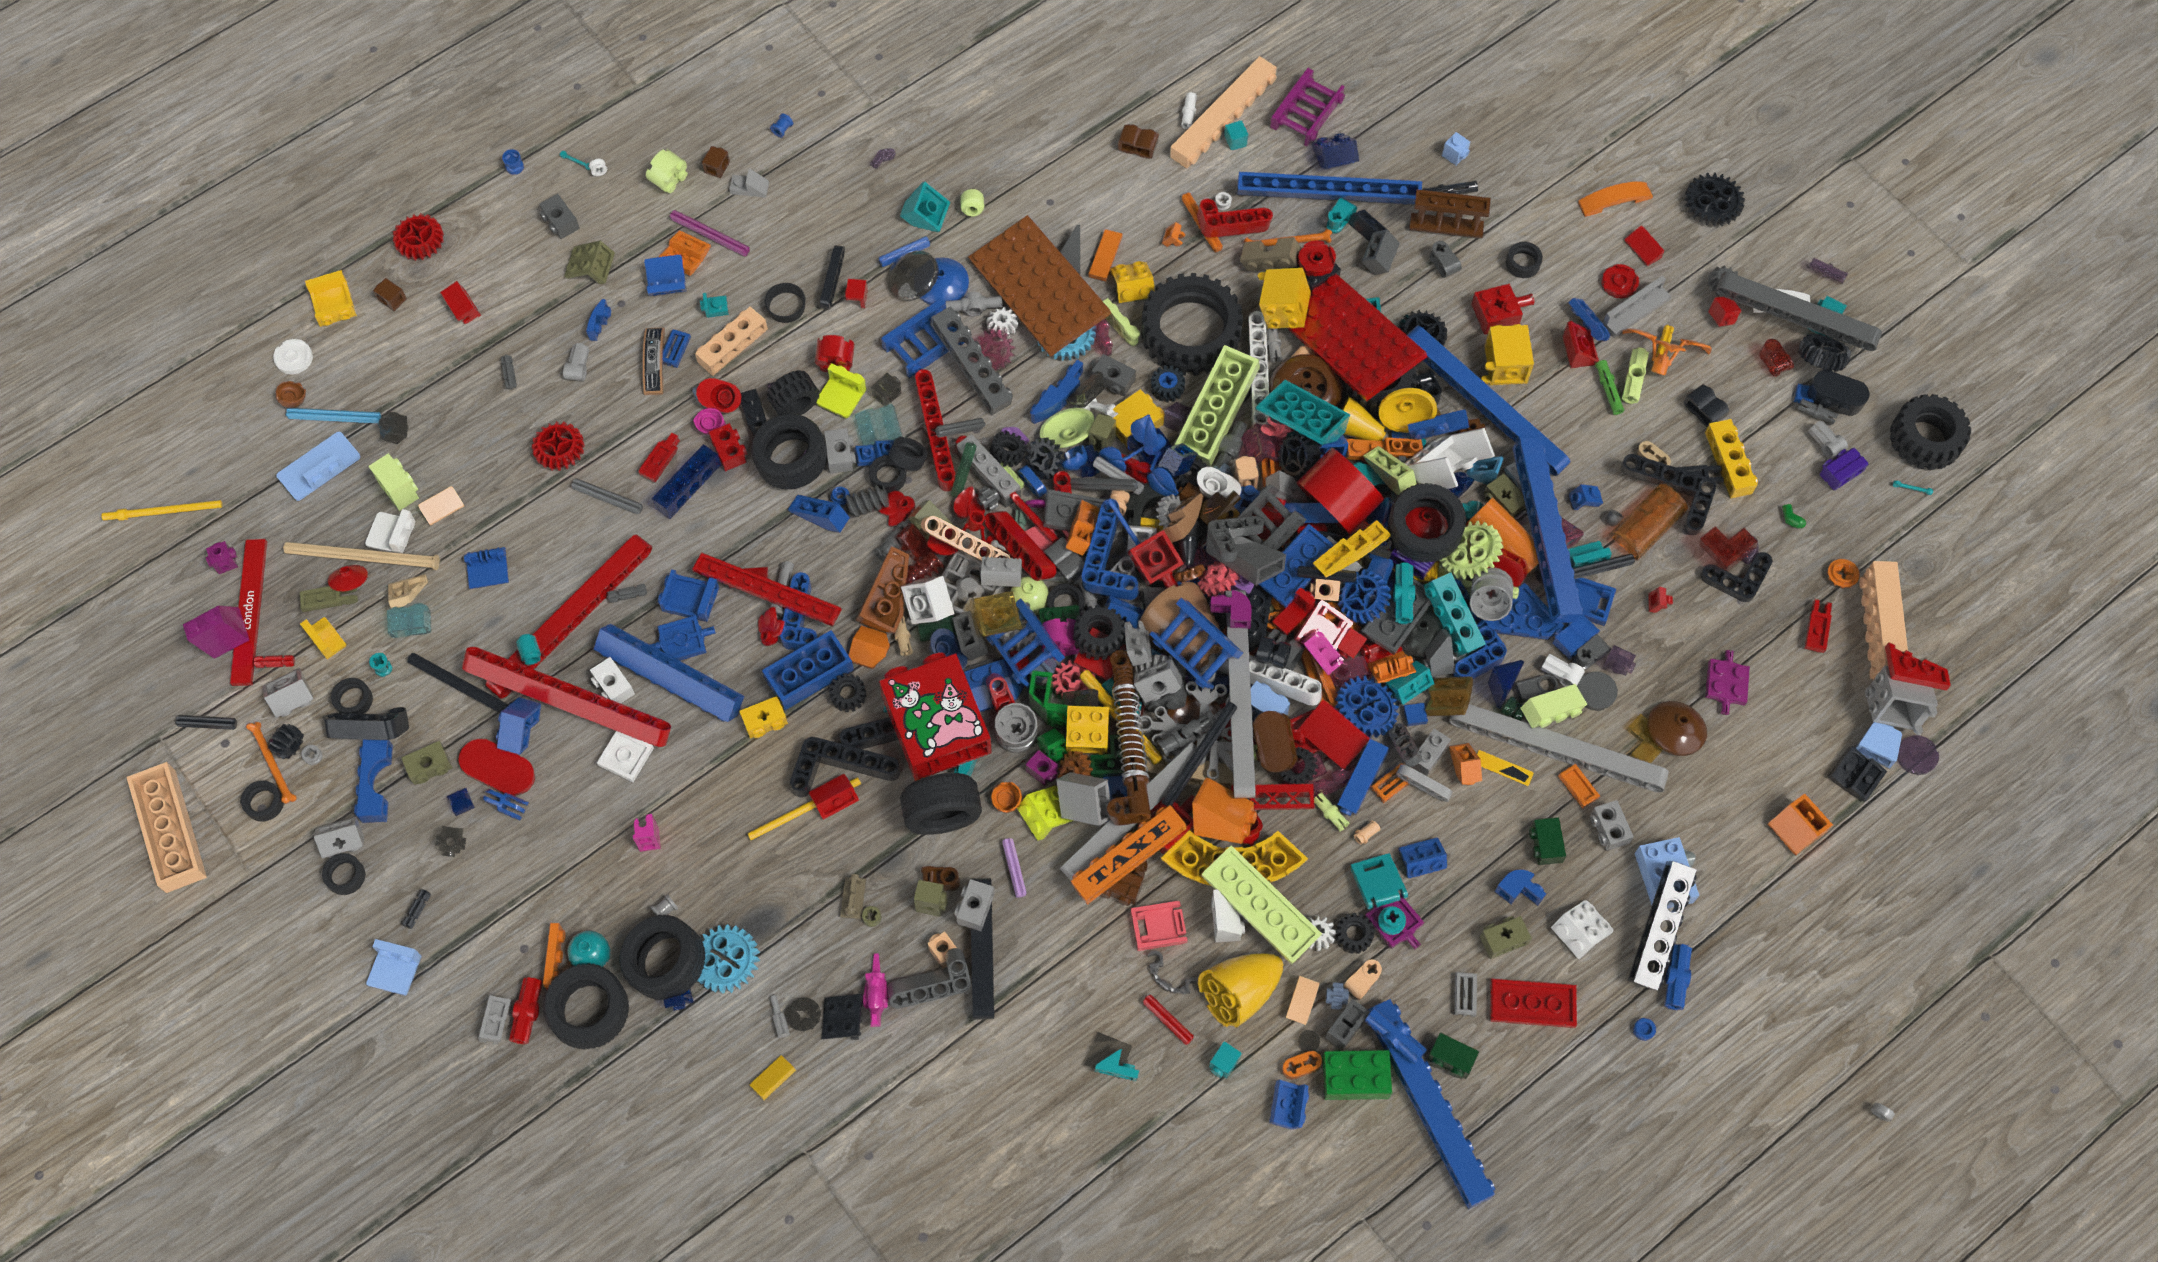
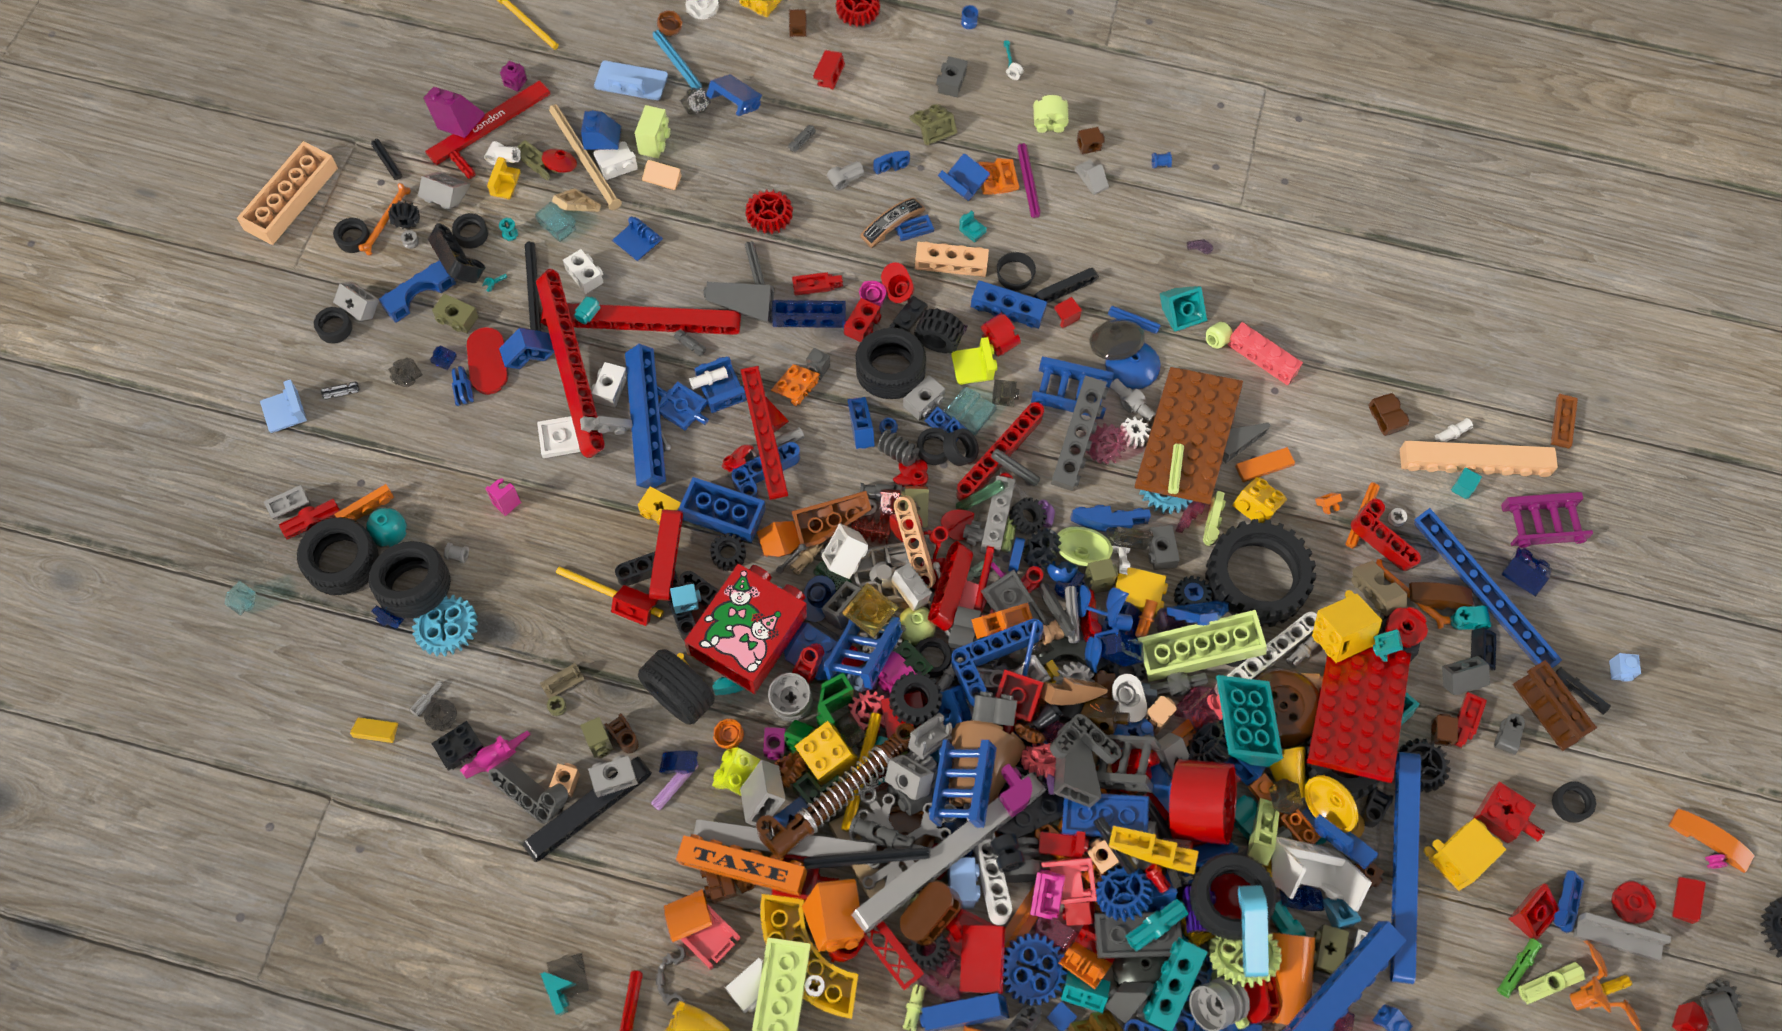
camera: 50 degrees right, 0 degrees up
(290, 622) = (496, 150): none -> white piece
(351, 524) = (600, 131): none -> blue slope
(418, 388) = (737, 92): none -> blue panel
(422, 713) = (491, 282): none -> teal hand
(479, 635) = (581, 272): none -> white brick
(556, 1114) = (240, 598): none -> clear light blue brick
(631, 518) = (747, 299): none -> dark grey slope
(653, 706) = (606, 424): none -> light grey hinge
(676, 599) = (708, 378): none -> white pin
(737, 508) = (818, 362): none -> dark grey brick
(739, 537) = (796, 383): none -> orange hinge
(815, 321) = (1001, 297): none -> blue brick
(815, 737) = (666, 554): none -> red beam
(867, 748) = (685, 598): none -> medium azure brick
(895, 663) = (780, 568): none -> dark grey hinge
(1000, 850) = (678, 761): none -> clear blue slope
(1016, 183) = (1265, 353): none -> coral brick
(1064, 313) = (1176, 466): none -> yellowish green axle
(1133, 926) = (687, 915): none -> orange slope
(1155, 580) = (995, 709): none -> dark grey brick
(1163, 427) = (1146, 618): none -> orange axle
(1195, 380) = (1201, 613): none -> blue plate
(1242, 34) = (1564, 421): none -> dark orange plate
(1270, 864) = (820, 988): none -> white bush
(1308, 219) = (1440, 595): none -> reddish brown slope
(1320, 280) = (1387, 643): none -> teal bracket
(1368, 563) = (1155, 874): none -> red pin
(1377, 436) = (1286, 796): none -> clear smoke brick
(1408, 298) = (1444, 730): none -> reddish brown brick
(1412, 277) = (1469, 717): none -> red hinge
(1466, 521) = (1254, 930): none -> medium azure beam
(1632, 207) = (1716, 861): none -> dark pink bush

